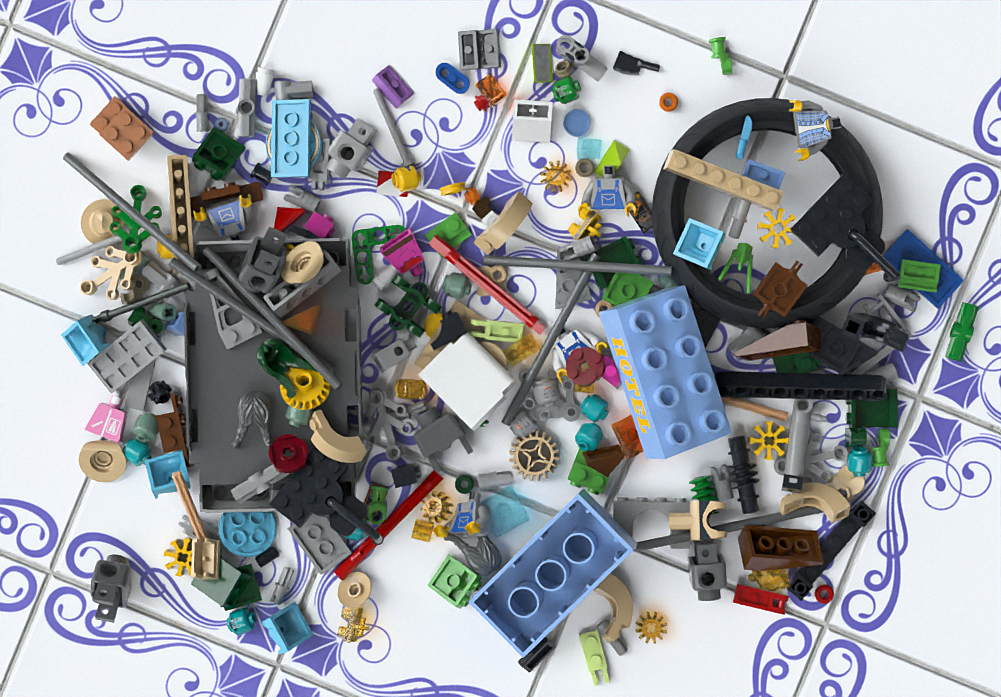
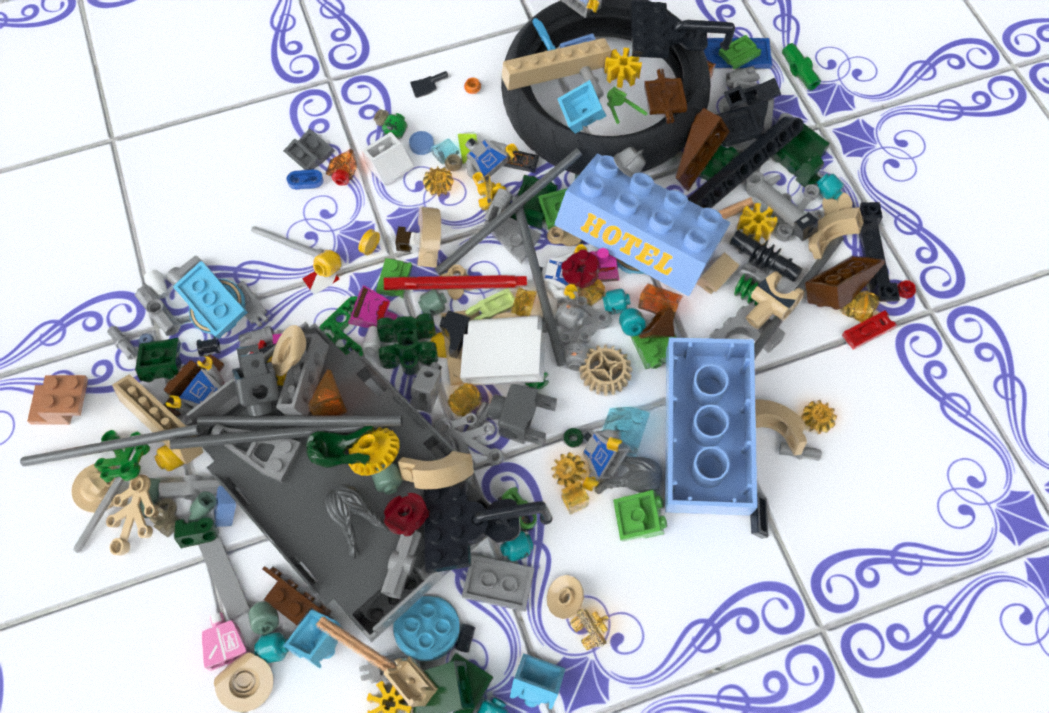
camera: 40 degrees left, 25 degrees down
(85, 339) = (146, 589): medium azure brick -> none
(108, 315) = (154, 554): pearl dark grey bar -> none
(127, 356) = (197, 570): light grey plate -> none
(159, 392) = (252, 578): black gear -> none
(282, 585) = (500, 651): light grey axle -> none
(353, 139) = (271, 271): light grey piece -> none
(389, 524) = (542, 564): red piece -> none
(392, 86) = (264, 218): medium lavender slope -> none
(406, 475) = (520, 464): black brick -> none
(472, 196) = (388, 238): orange plate -> none
(494, 479) = (592, 414): light grey hinge -> none
(542, 63) = (361, 127): flat silver slope -> none
(588, 63) = (383, 97): light grey connector -> none
(594, 654) = (802, 479): yellowish green hinge -> none
(696, 457) = (718, 273): none -> tan hinge
(698, 318) = (630, 161): none -> light grey piece
(706, 561) = (813, 334): dark grey piece -> none
(719, 51) = (488, 39): bright green connector -> none
(748, 337) = (670, 174): light grey piece -> none
(880, 452) = (833, 167): bright green connector -> none

